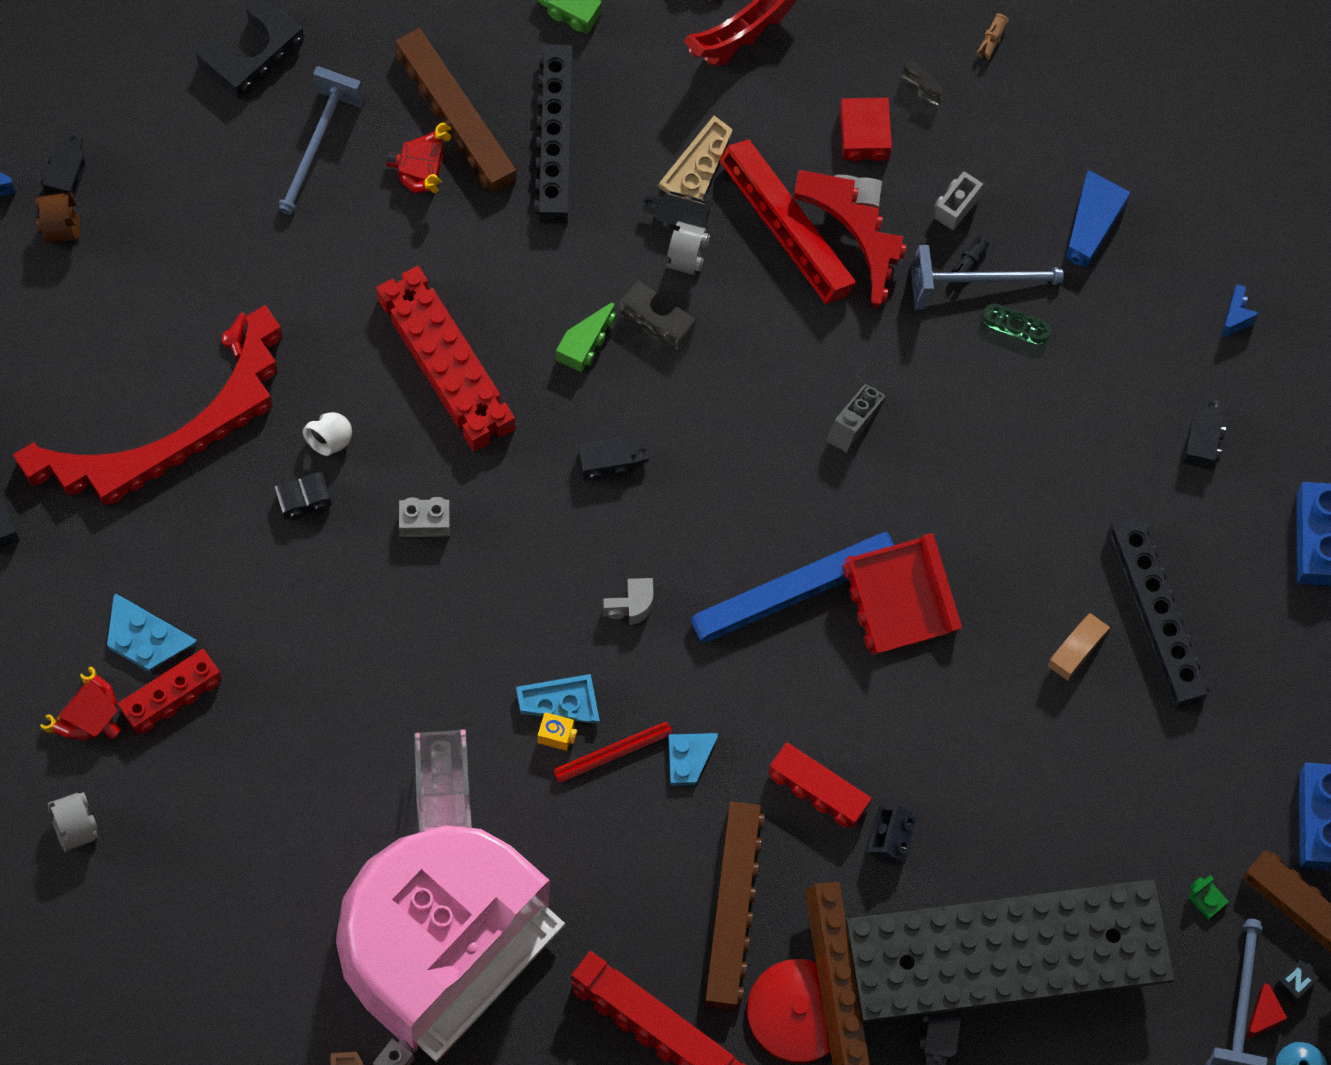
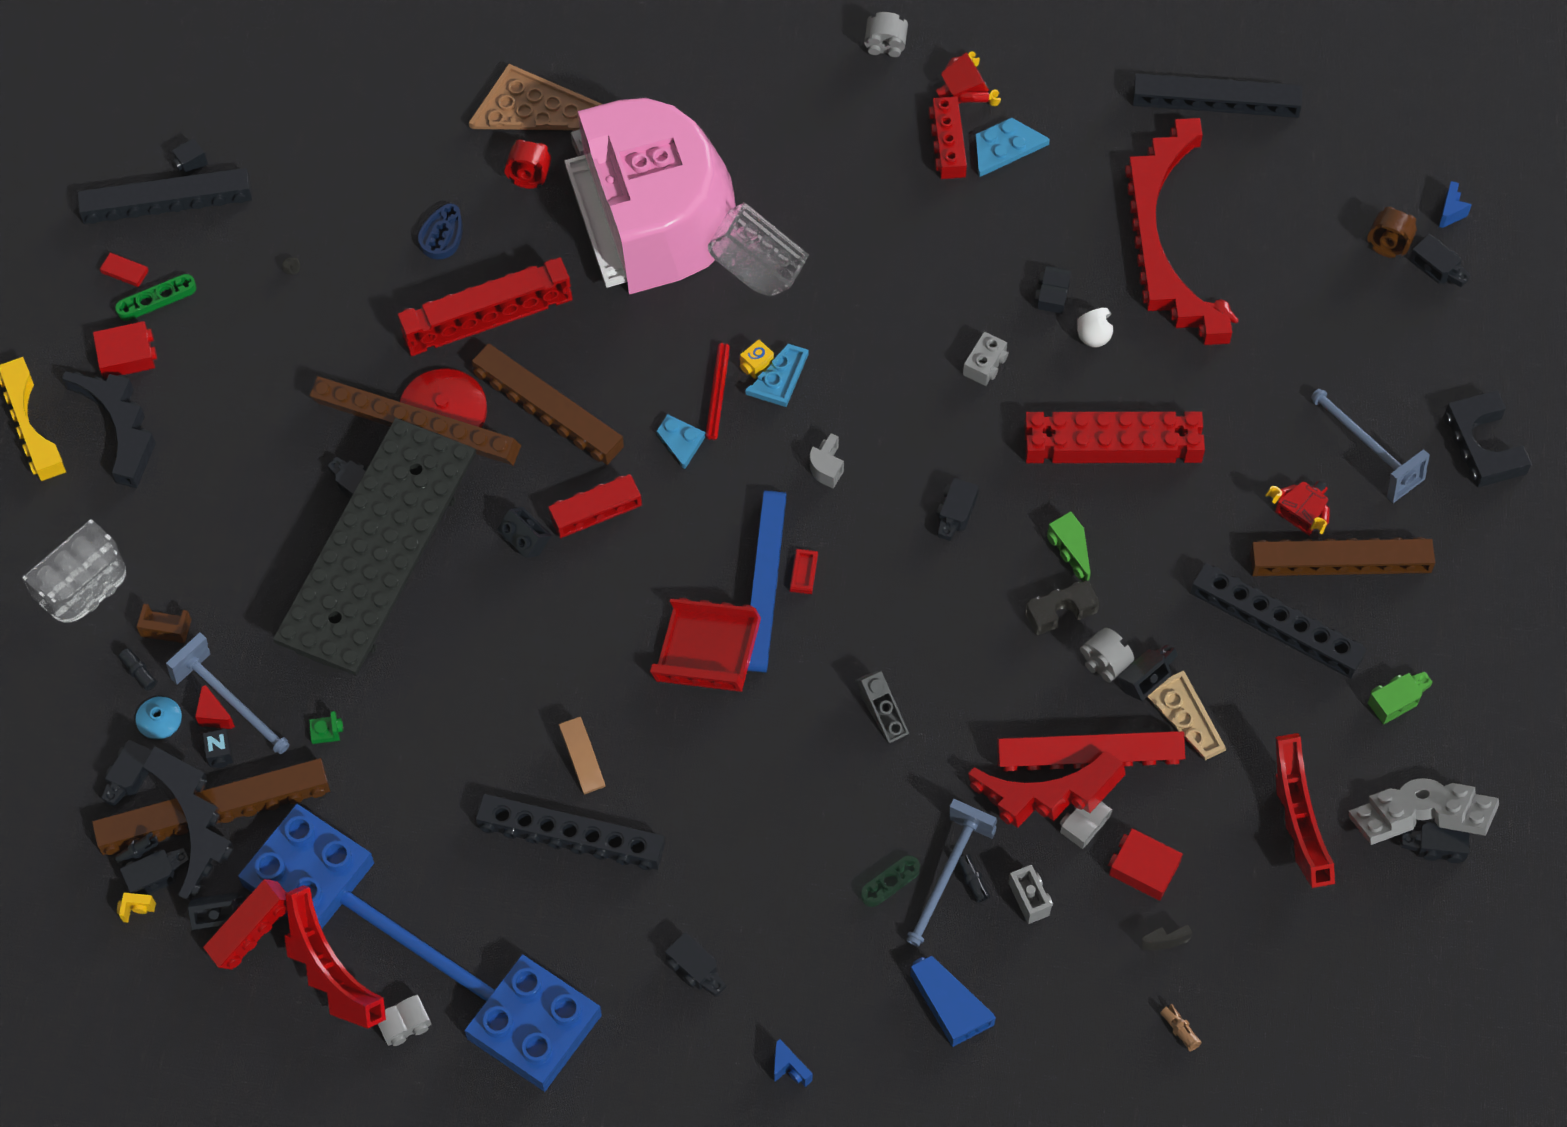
camera: 125 degrees right, 5 degrees down
(760, 561) = (804, 571): none -> red tile

